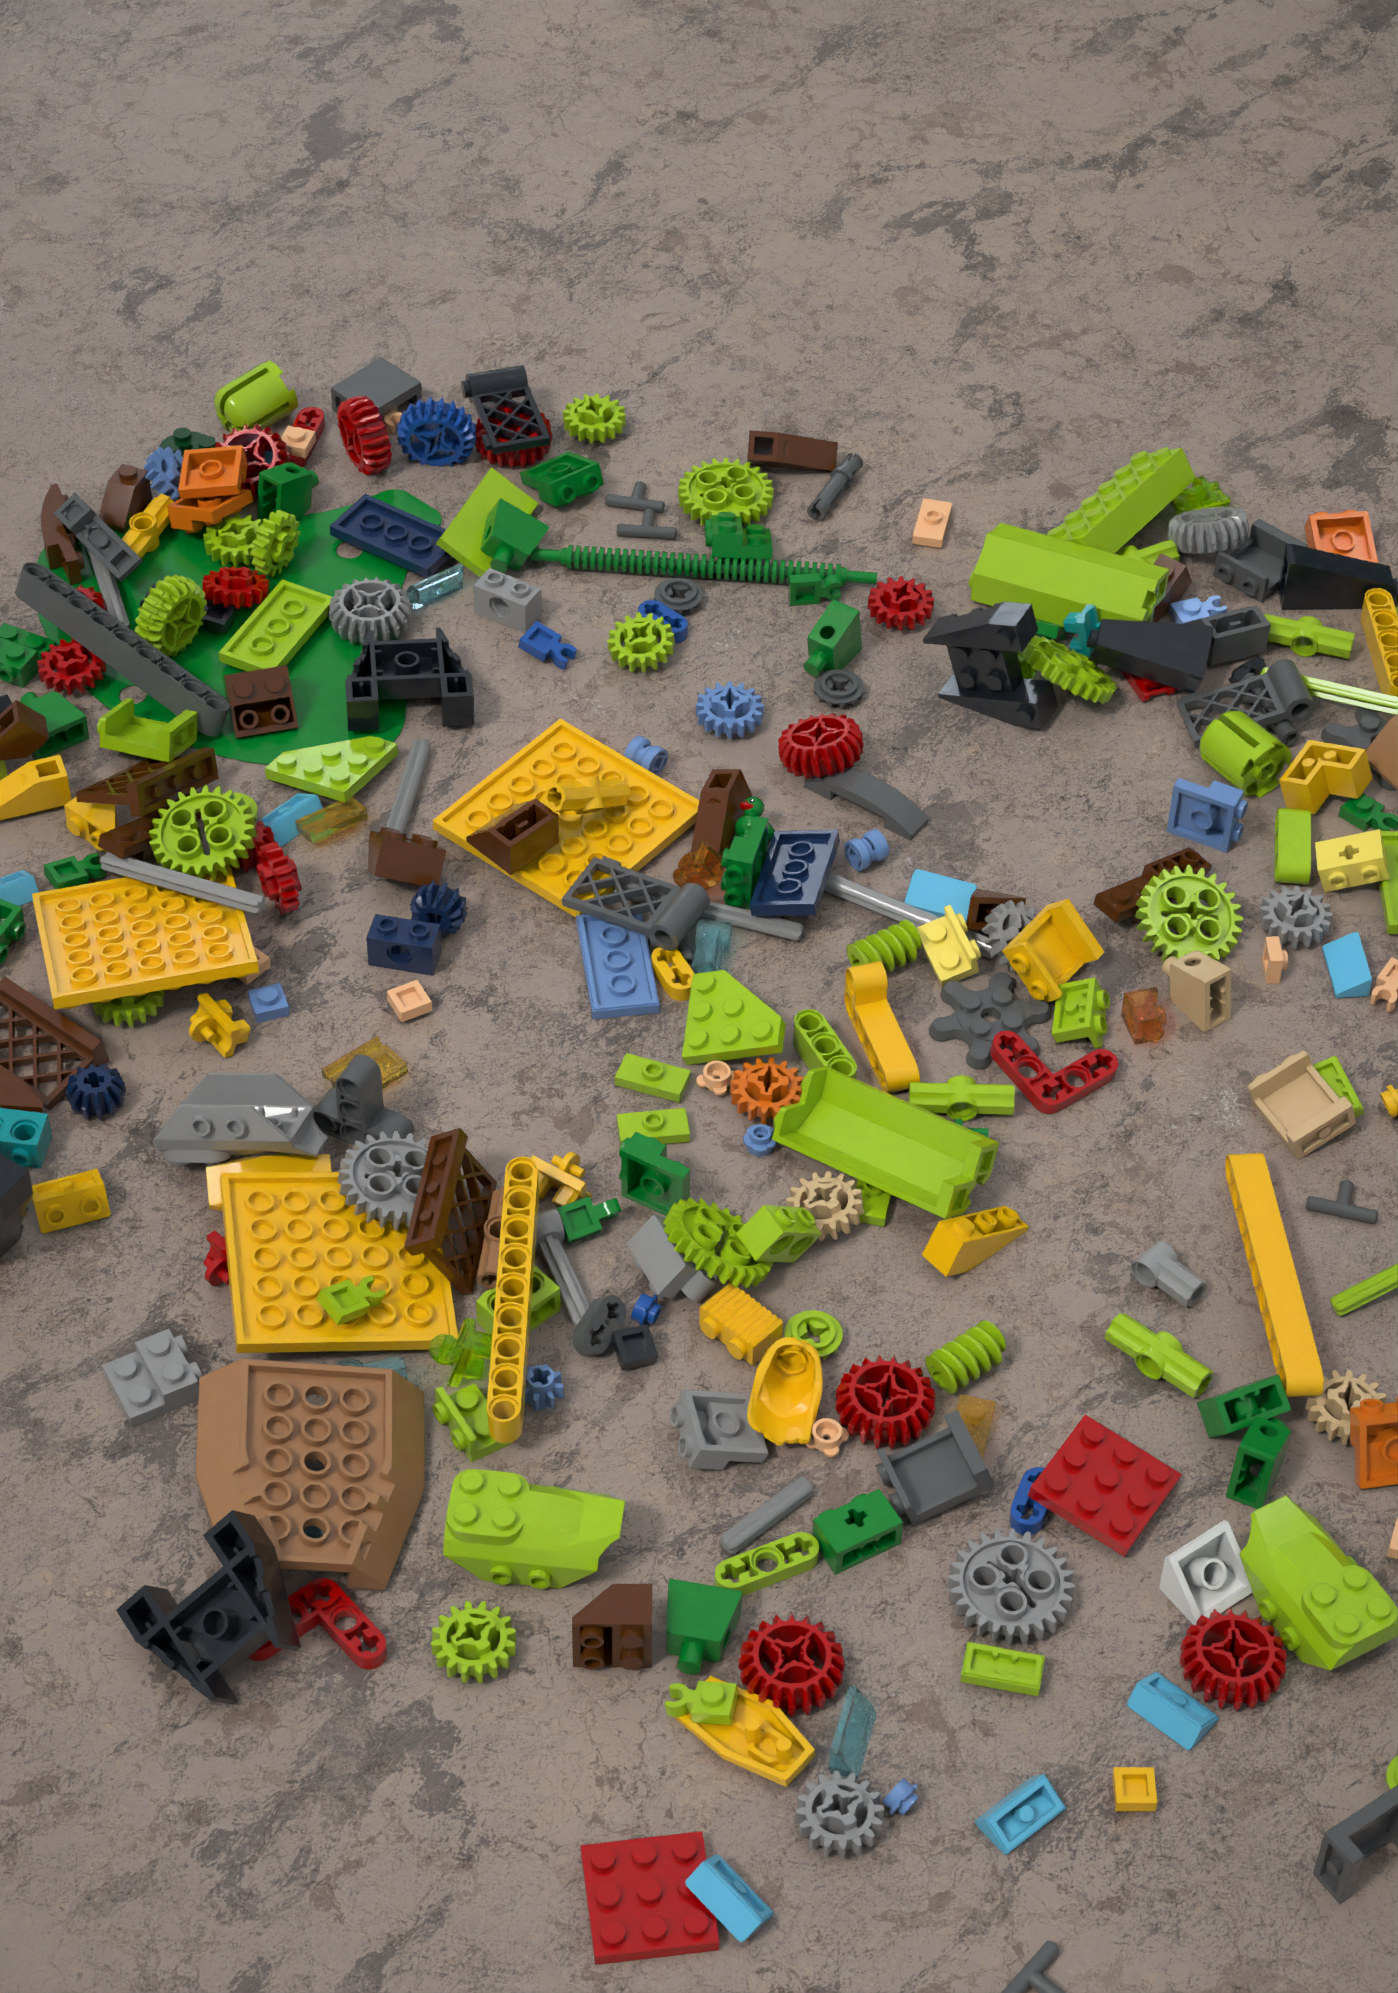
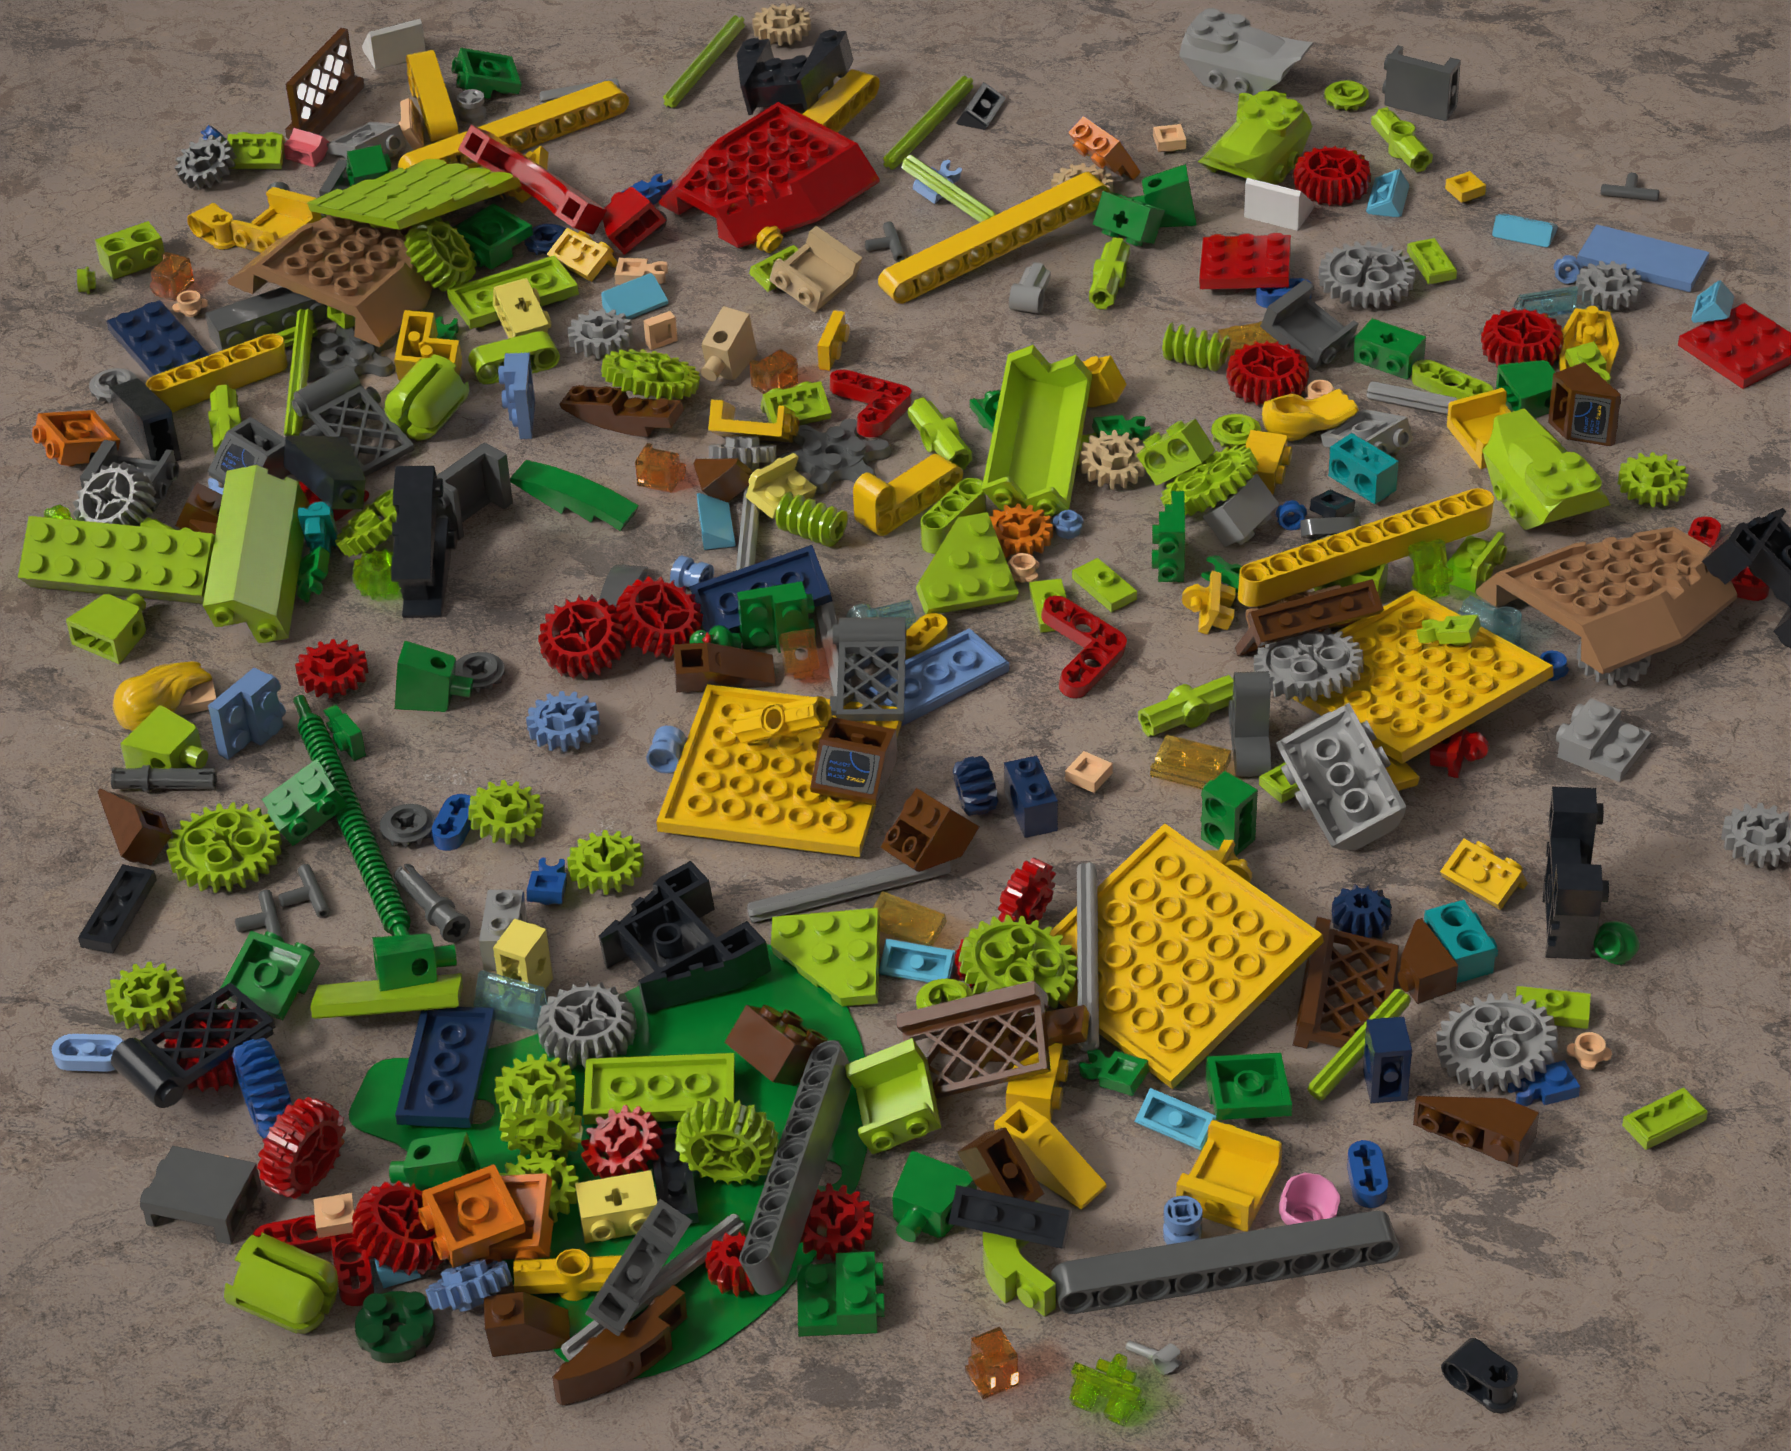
camera: 115 degrees left, 5 degrees down
(186, 559) = (615, 1205): none -> light yellow brick
(265, 1040) = (1228, 812): none -> green brick
(330, 567) = (535, 1078): none -> lime gear
(435, 1096) = (1186, 706): none -> lime piece
(451, 588) = (524, 954): none -> light yellow brick
(540, 679) = (605, 862): none -> lime gear
(561, 383) = (85, 1052): none -> light blue plate
(564, 580) = (438, 910): none -> dark grey pin
(564, 1077) = (1057, 615): none -> red beam
(656, 1384) = (1363, 468): none -> teal brick
(660, 1549) = (1473, 420): none -> yellow panel
(702, 429) = (117, 909): none -> black plate
(805, 788) = (658, 615): none -> red gear
(863, 530) = (247, 713): none -> medium blue plate
(872, 493) = (164, 743): none -> lime torso
(875, 1237) = (1134, 427): none -> green plate
(882, 1900) = (1652, 258): none -> medium blue tile
(940, 498) = (158, 686): none -> yellow hair
(1039, 813) = (568, 490): none -> green slope
(1042, 881) = (659, 469): none -> clear orange brick
(1046, 499) = (108, 626): none -> lime torso
(1073, 723) = (474, 483): none -> dark grey panel
(1173, 1078) = (831, 341): none -> yellow plate
(1293, 1775) = (1401, 139): none -> lime piece

